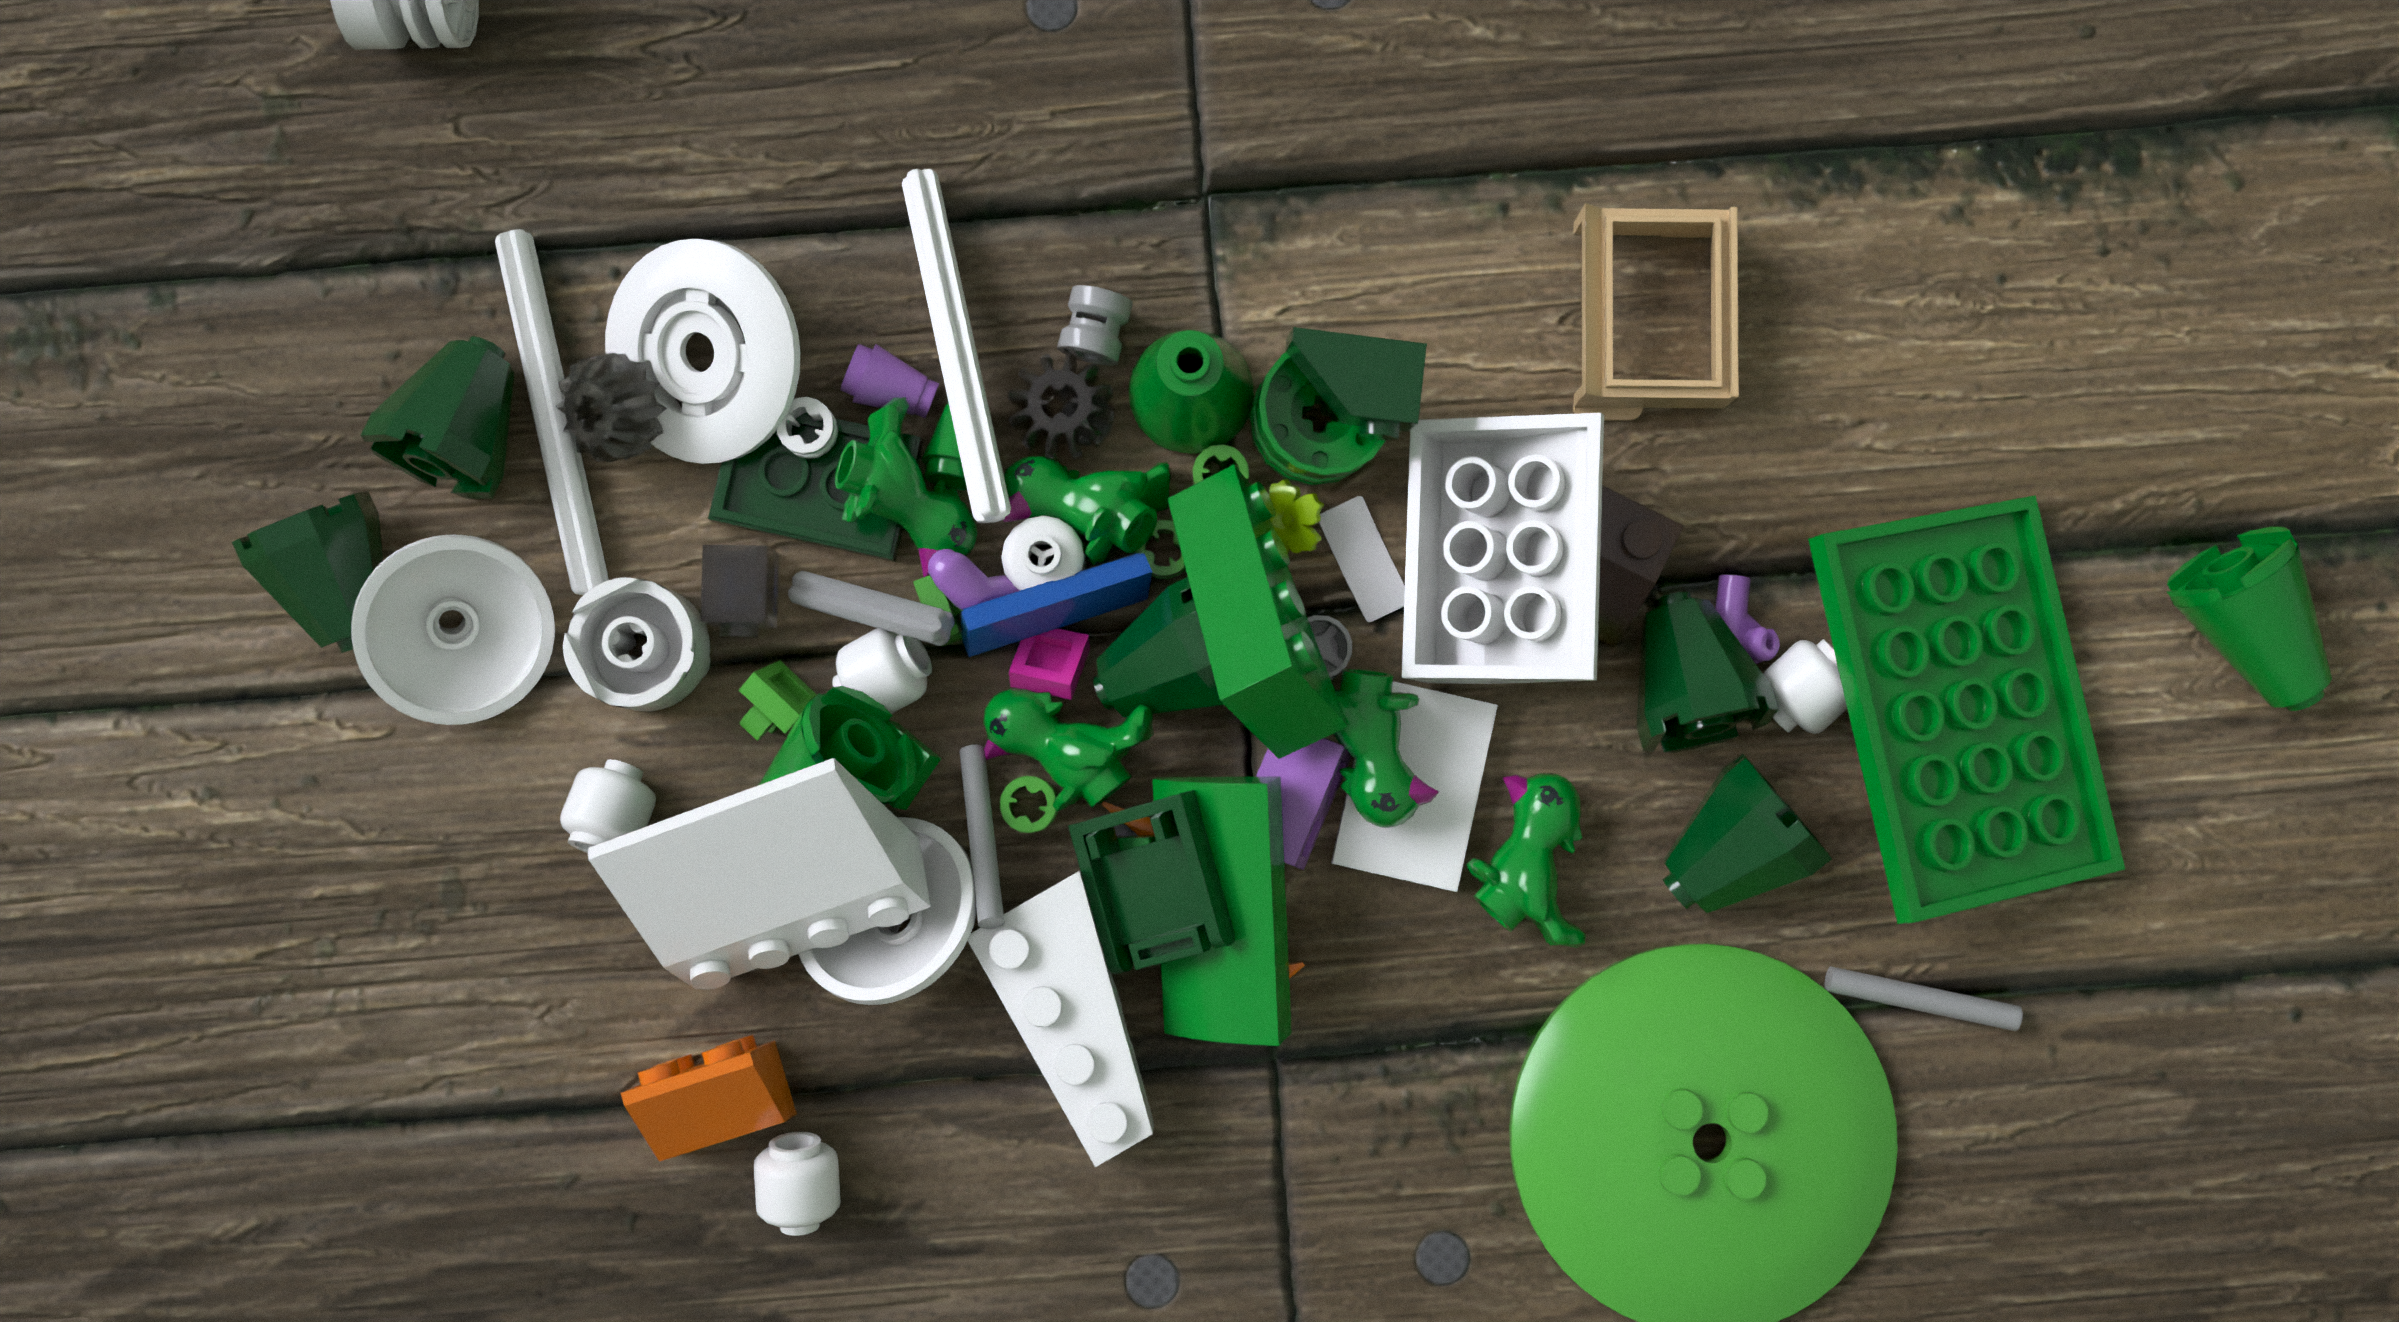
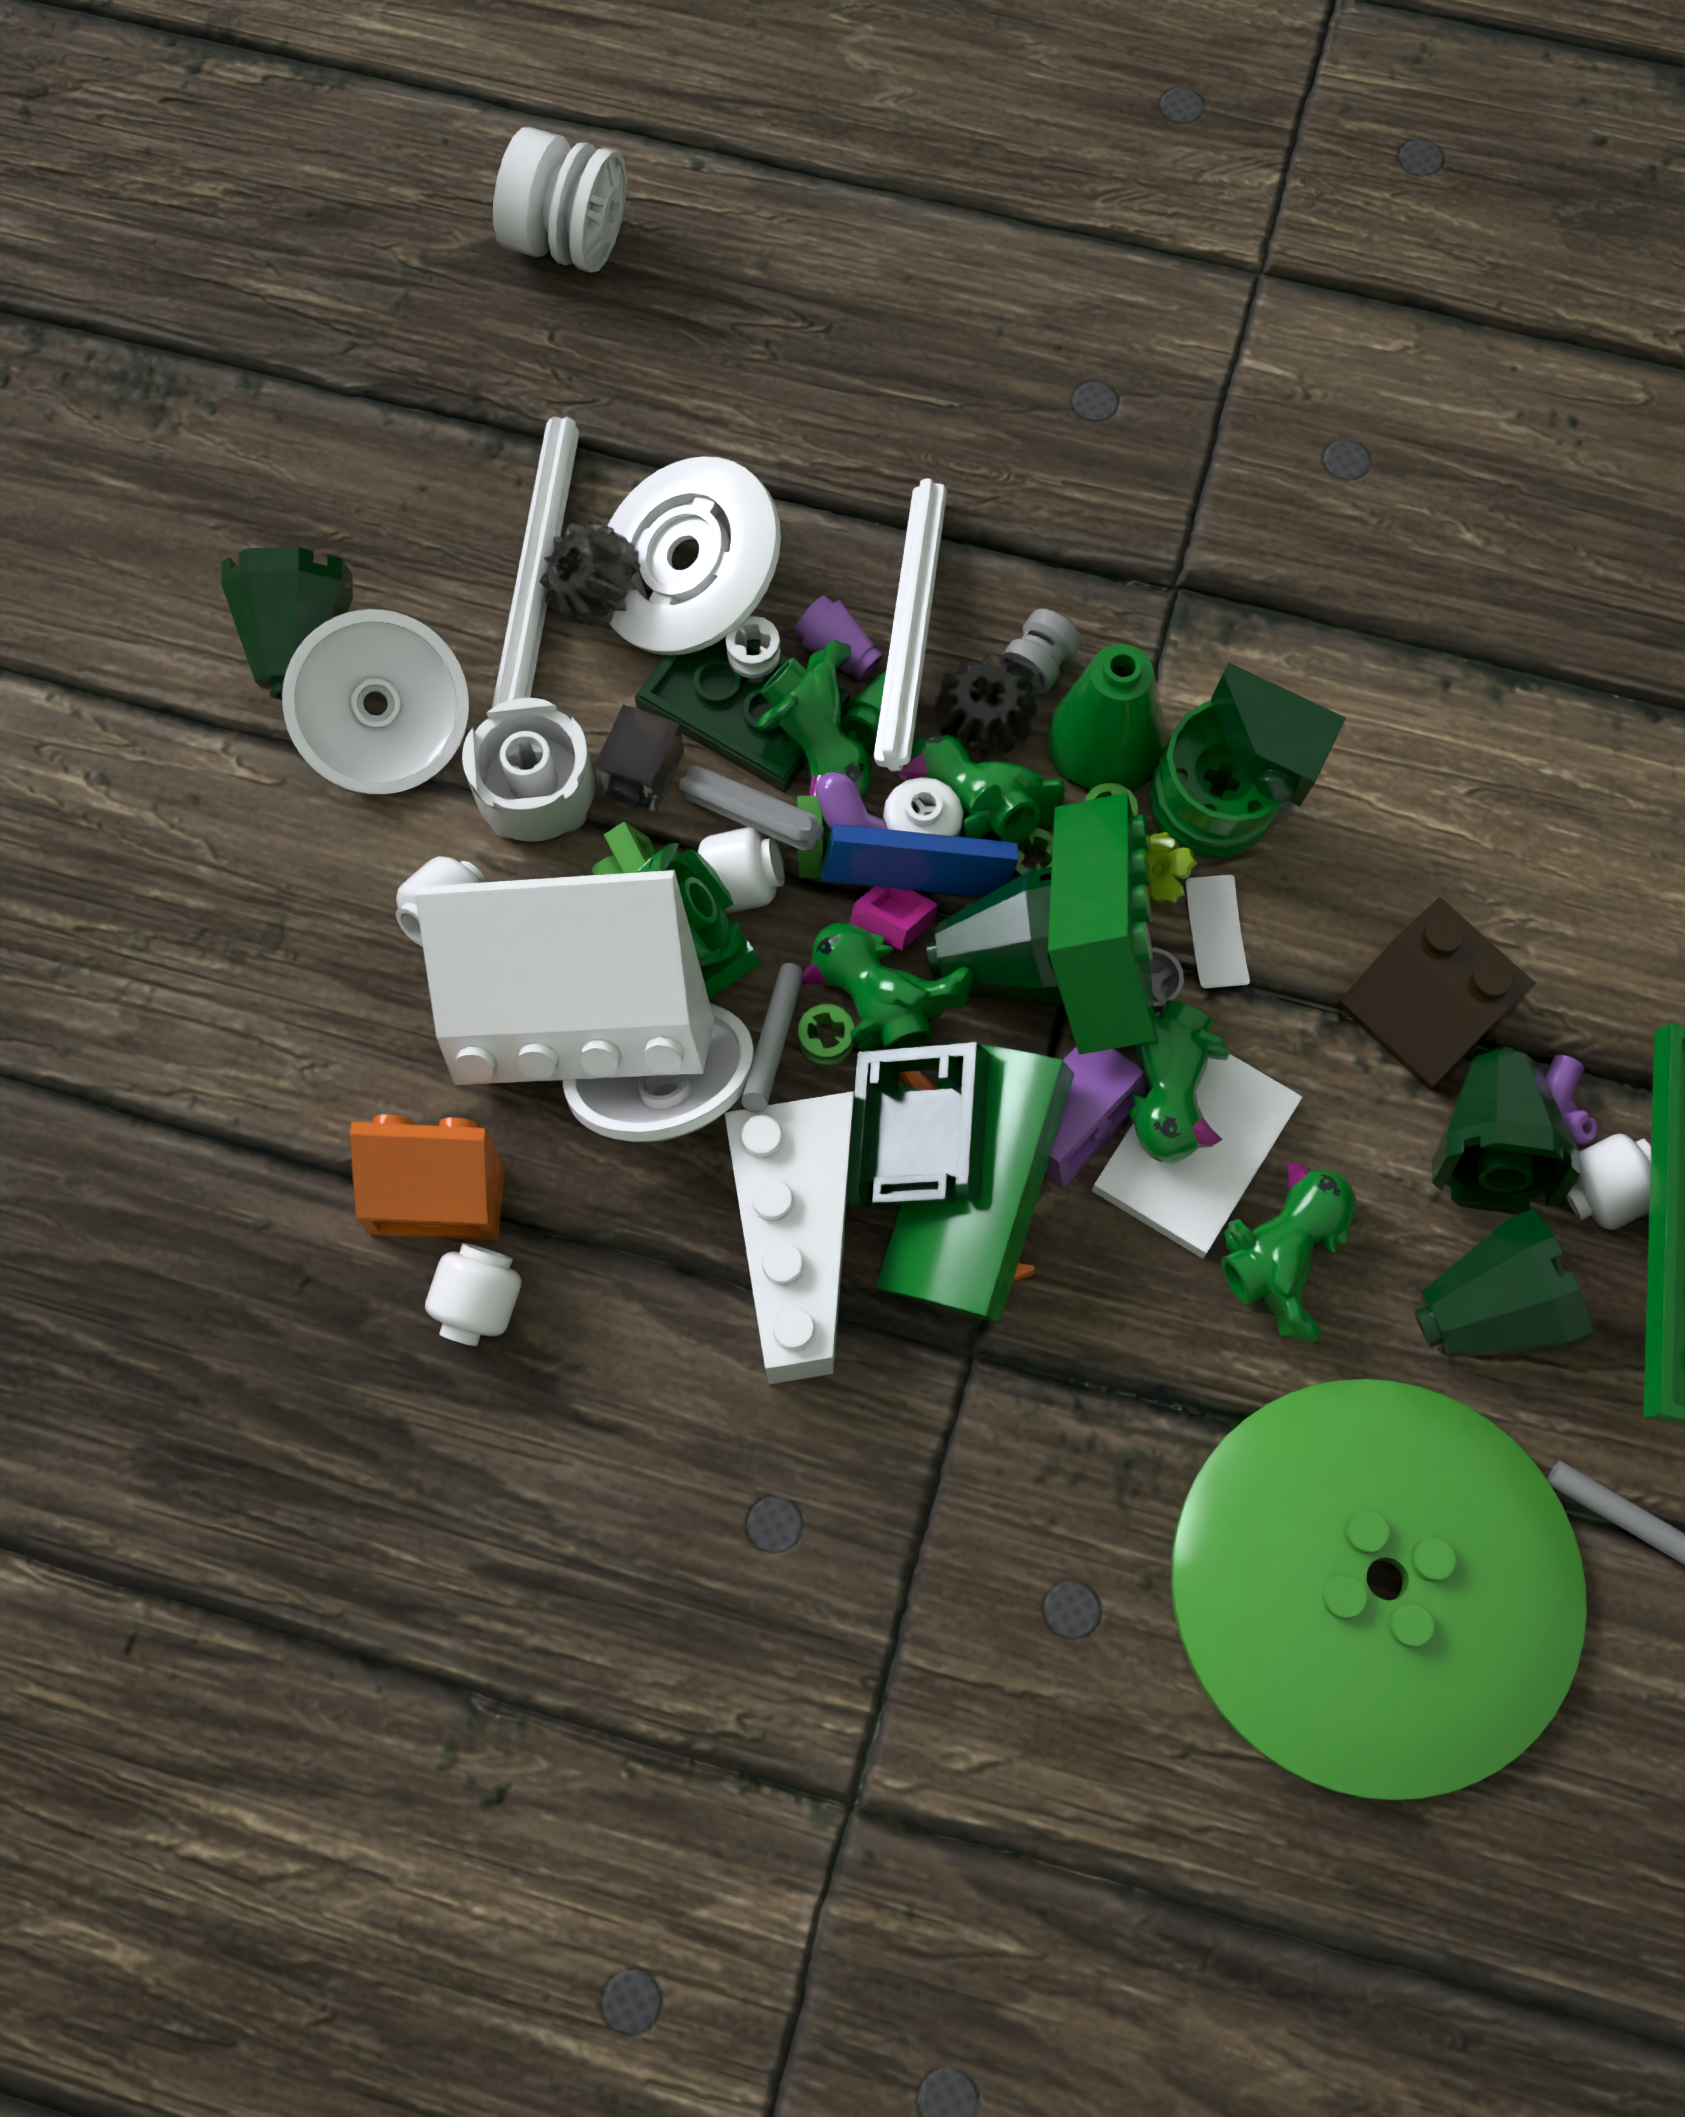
camera: 20 degrees right, 15 degrees down
(449, 419) = (445, 542): dark green cone -> none
(1503, 549) = (1353, 944): white slope -> none
(1626, 397) = (1511, 866): tan piece -> none

